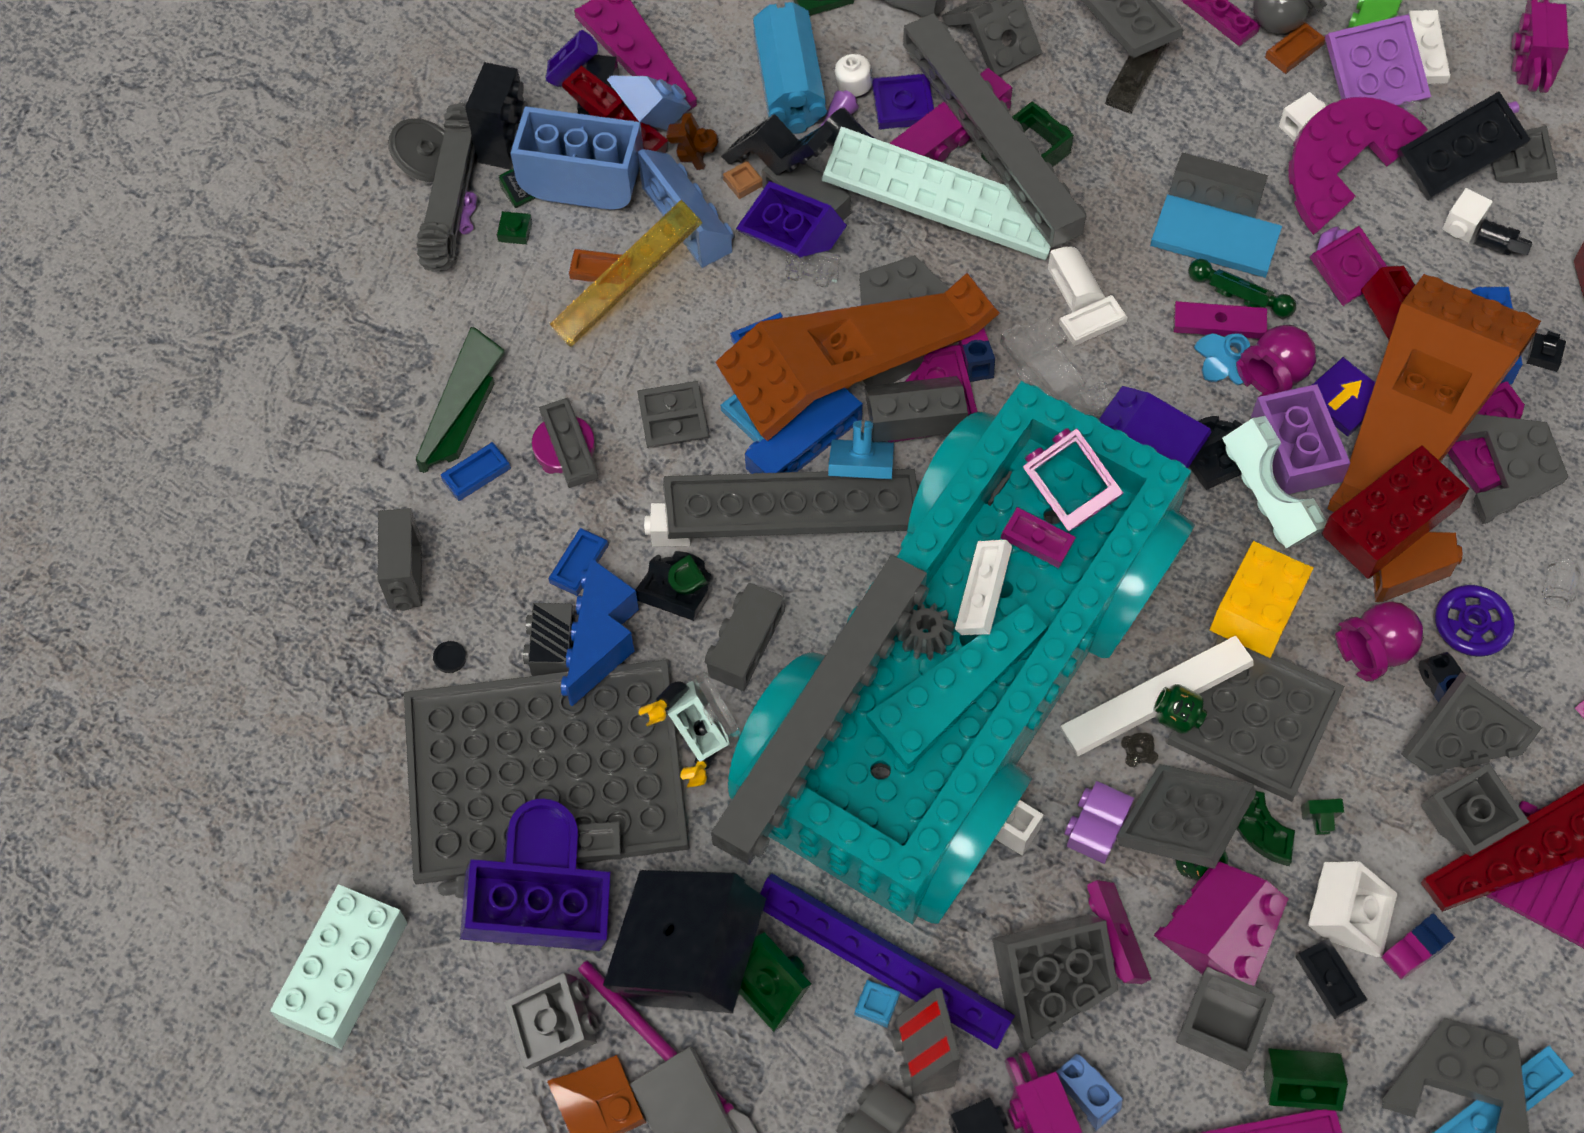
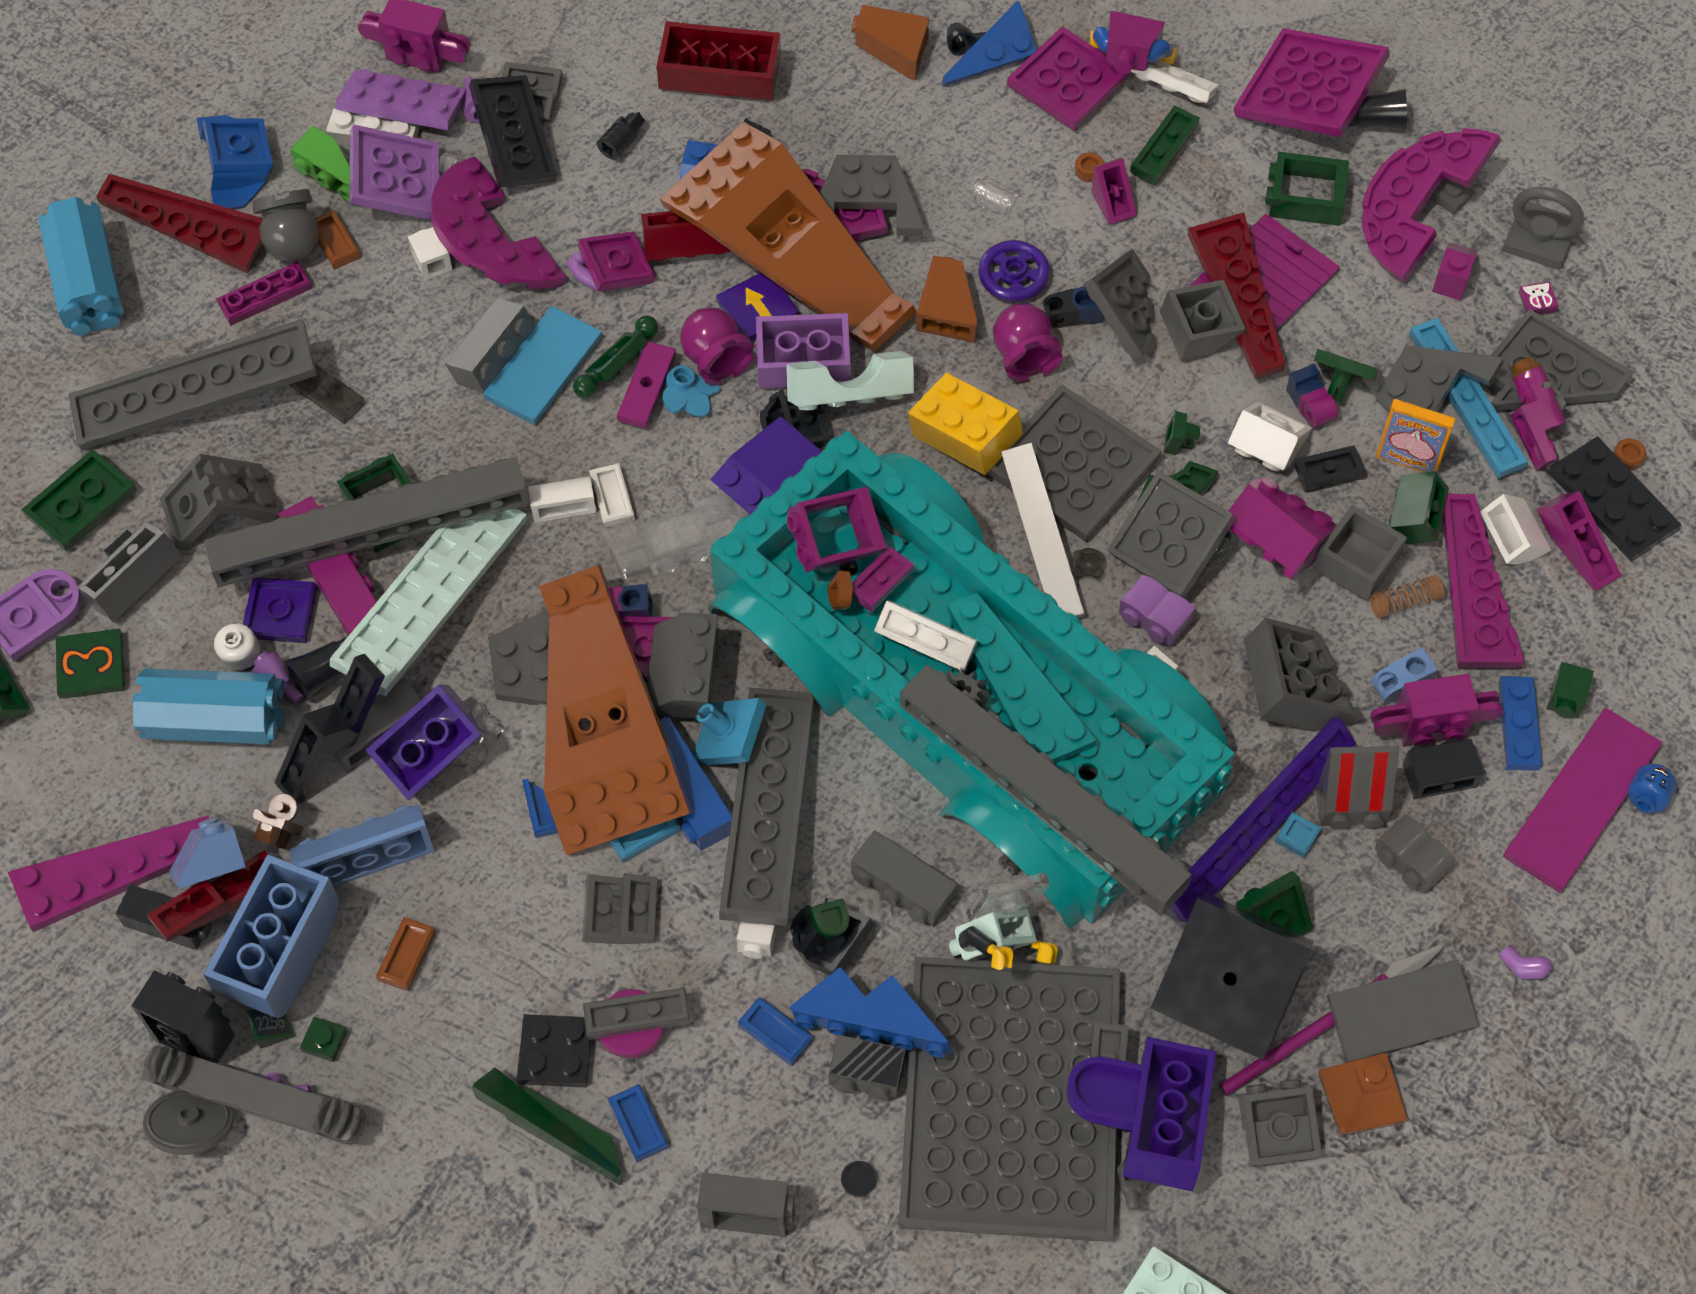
camera: 80 degrees left, 0 degrees up
(526, 390) = (553, 1051): none -> black plate
(570, 57) = (115, 933): dark purple brick -> none
(626, 273) = (442, 917): clear yellow tile -> none
(743, 179) = (333, 788): medium nougat tile -> none
(1010, 502) = (840, 591): none -> dark orange tile
(1128, 958) = (1235, 623): magenta tile -> none
(1174, 1056) = (1433, 586): none -> medium nougat piece
(1180, 709) = (1068, 512): dark green head -> none
(1385, 1053) = (1414, 437): none -> tile
(1395, 511) = (910, 291): dark red brick -> none
(1463, 974) = (1344, 370): none -> dark green tile
(1466, 54) = (401, 99): none -> medium lavender plate
(1467, 215) = (587, 153): white brick -> none

